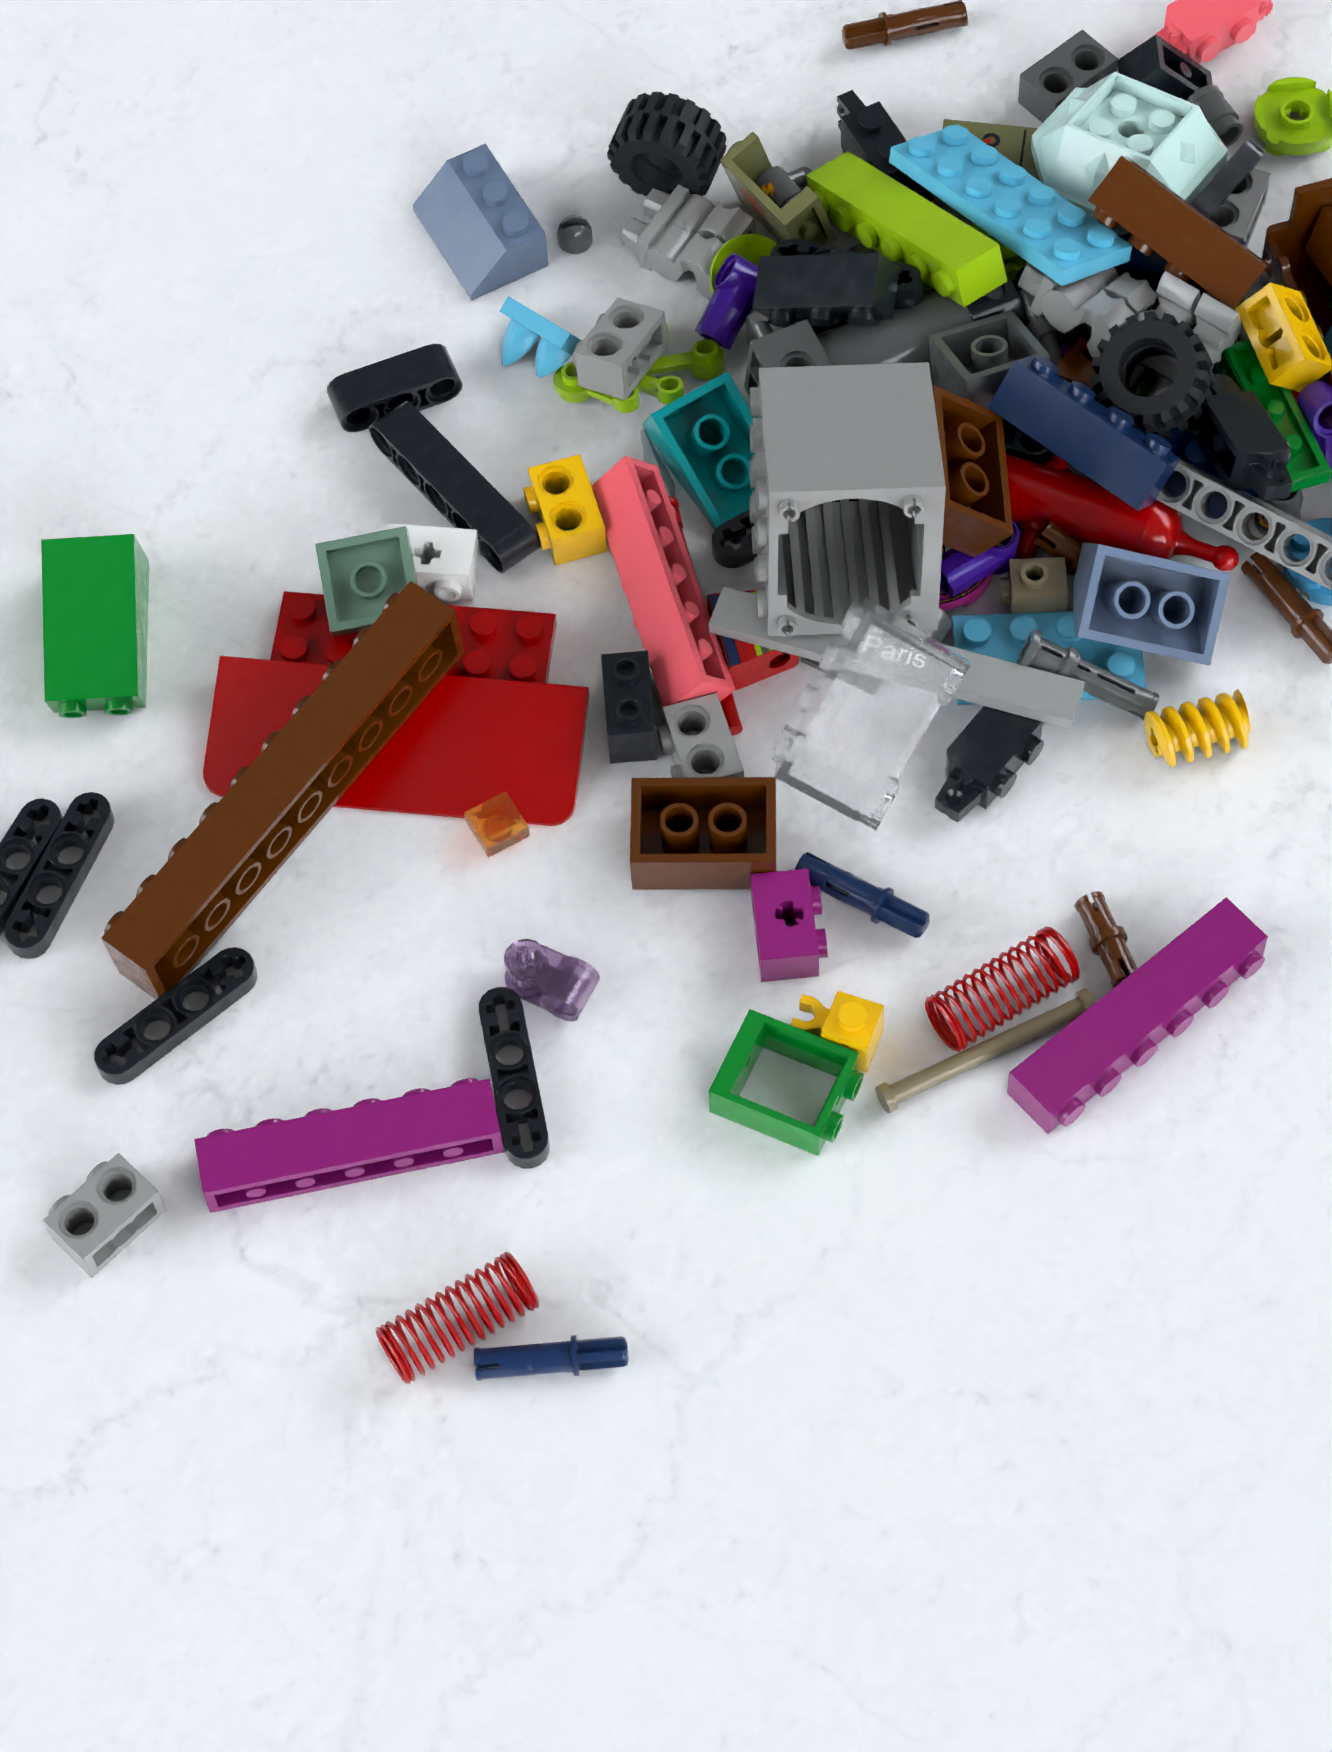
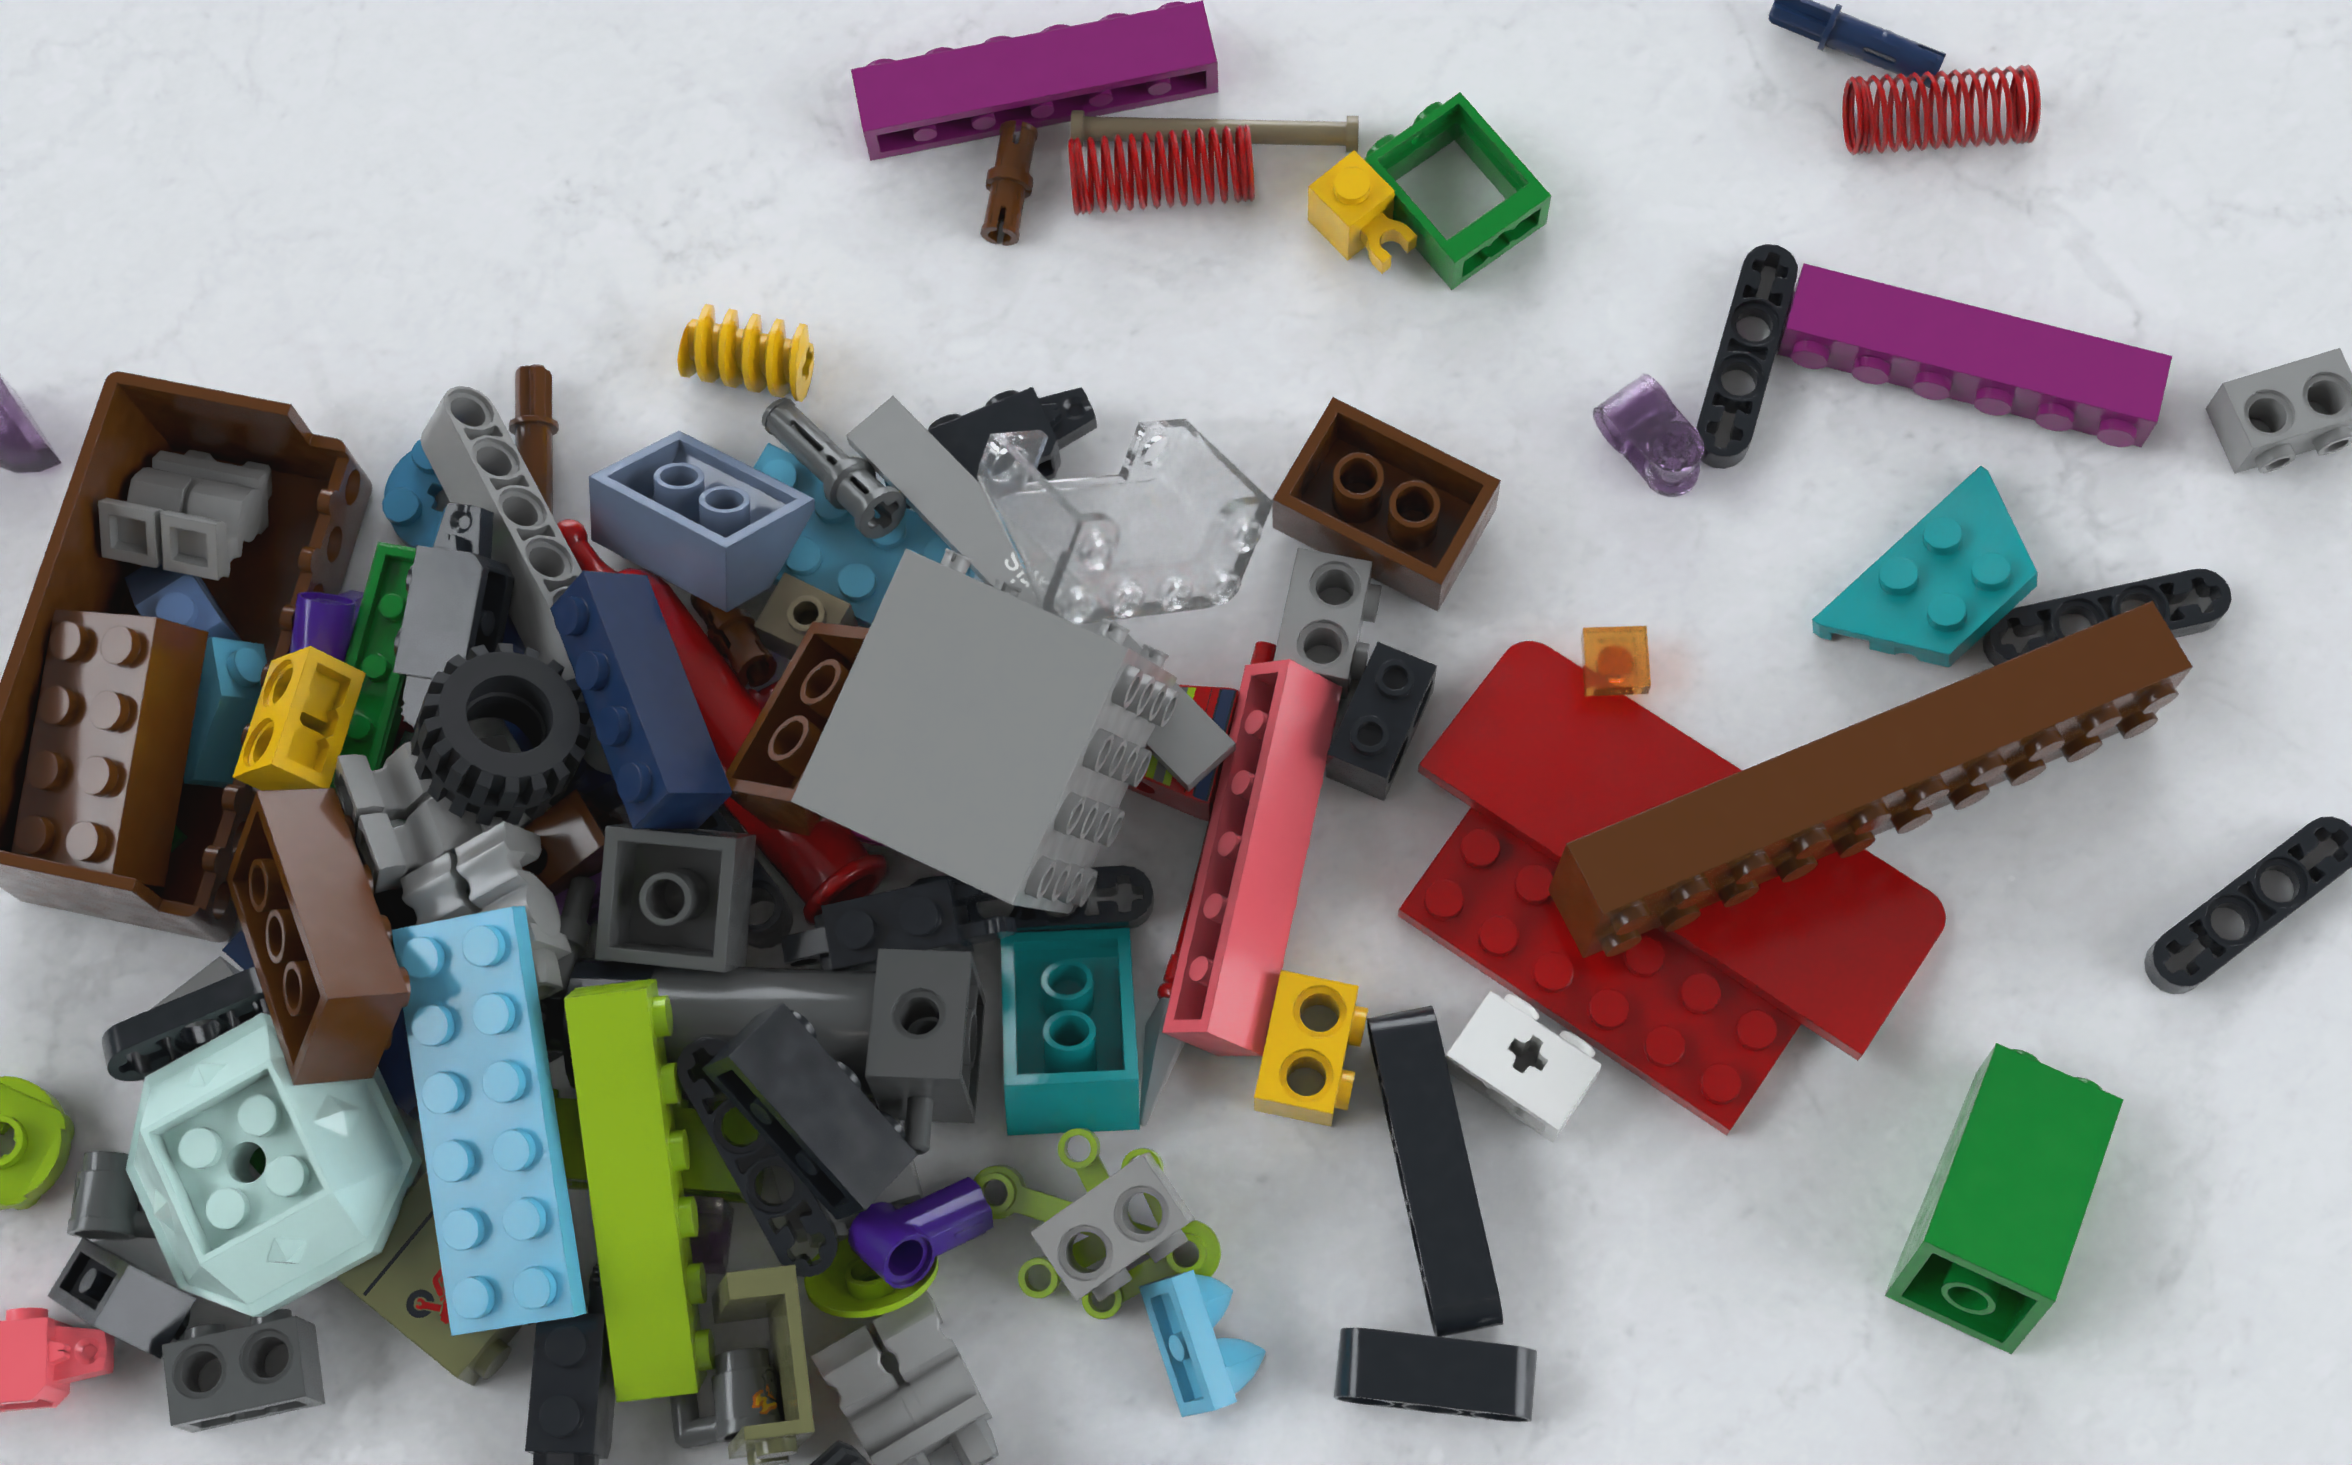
camera: 150 degrees left, 10 degrees up
(66, 876) = (2181, 876): black beam -> none
(302, 979) = (1939, 581): none -> teal wing
(361, 576) = (1627, 1037): sand green plate -> none
(783, 949) = (1357, 331): magenta brick -> none
(864, 896) = (1250, 374): dark blue axle -> none

